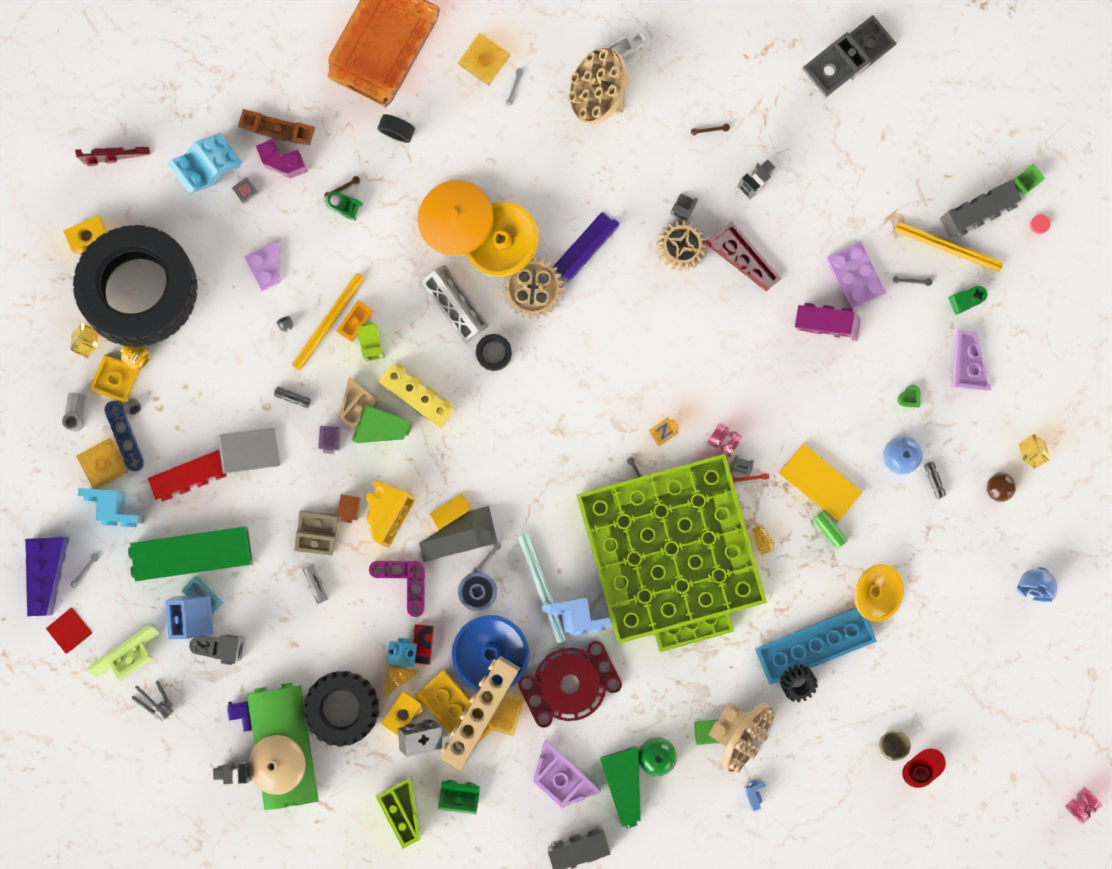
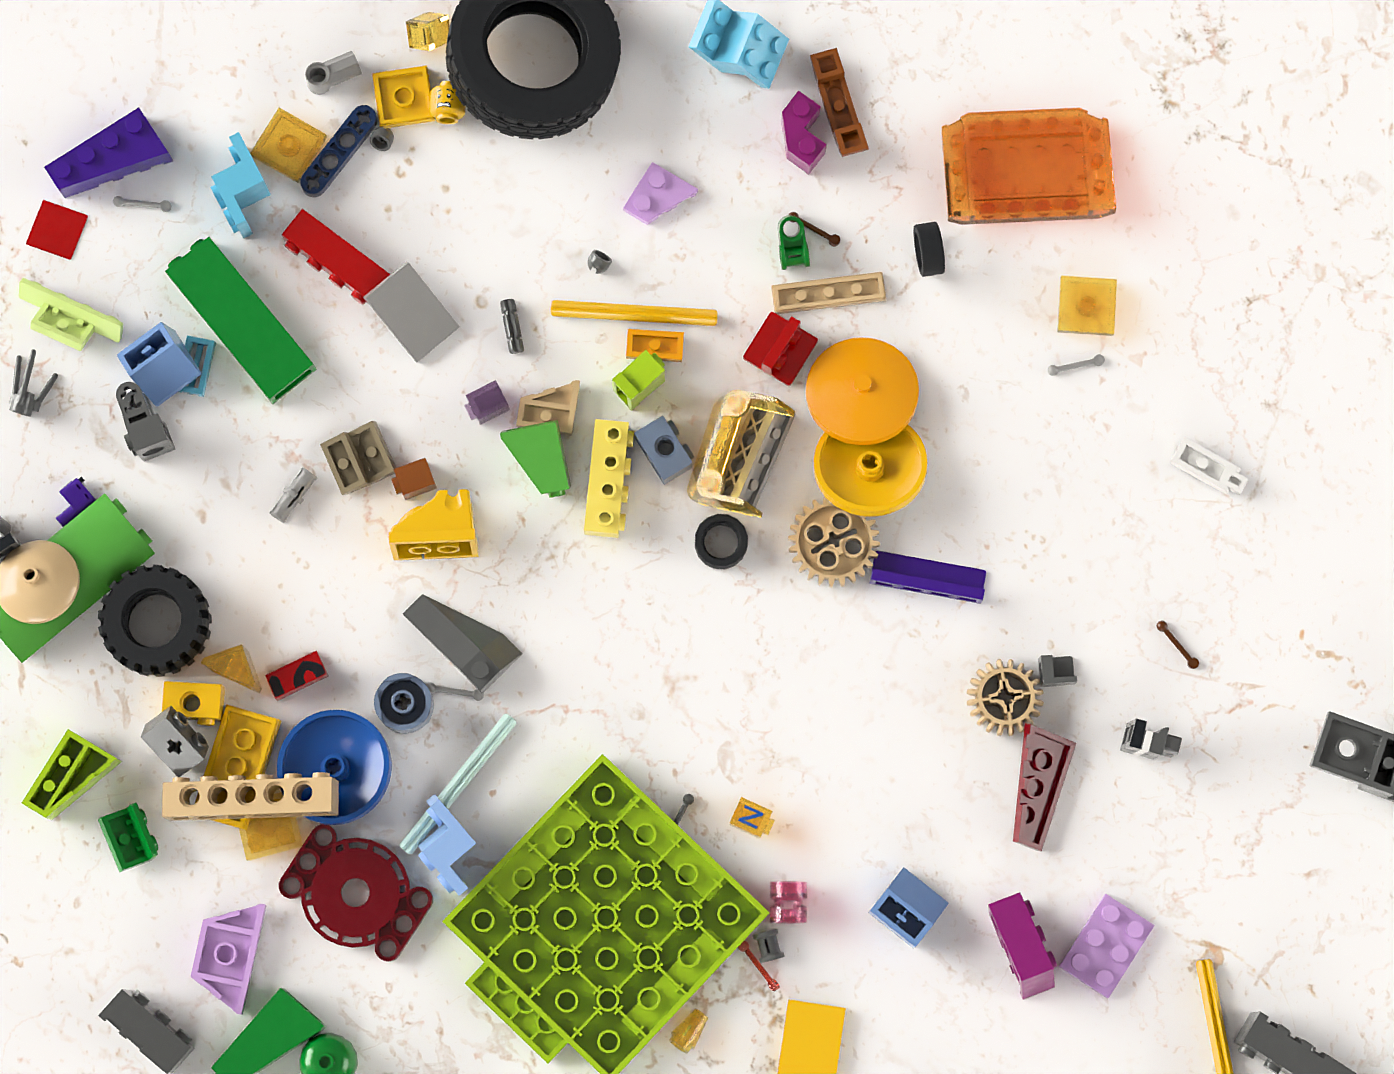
camera: 60 degrees right, 5 degrees down
(245, 190) = (736, 112): tile -> none
(385, 202) = (828, 293): none -> tan tile
(401, 249) = (780, 348): none -> red bracket
(401, 653) = (269, 655): dark azure brick -> none
(406, 573) = (374, 603): magenta beam -> none
(431, 355) = (666, 466): none -> sand blue brick
(450, 511) = (485, 609): yellow slope -> none
(453, 339) = (707, 478): none -> clear yellow windscreen
(598, 86) = (1142, 469): tan bracket -> none
(768, 373) = (908, 908): none -> medium blue slope
(927, 282) = (1156, 1046): dark grey hinge -> none

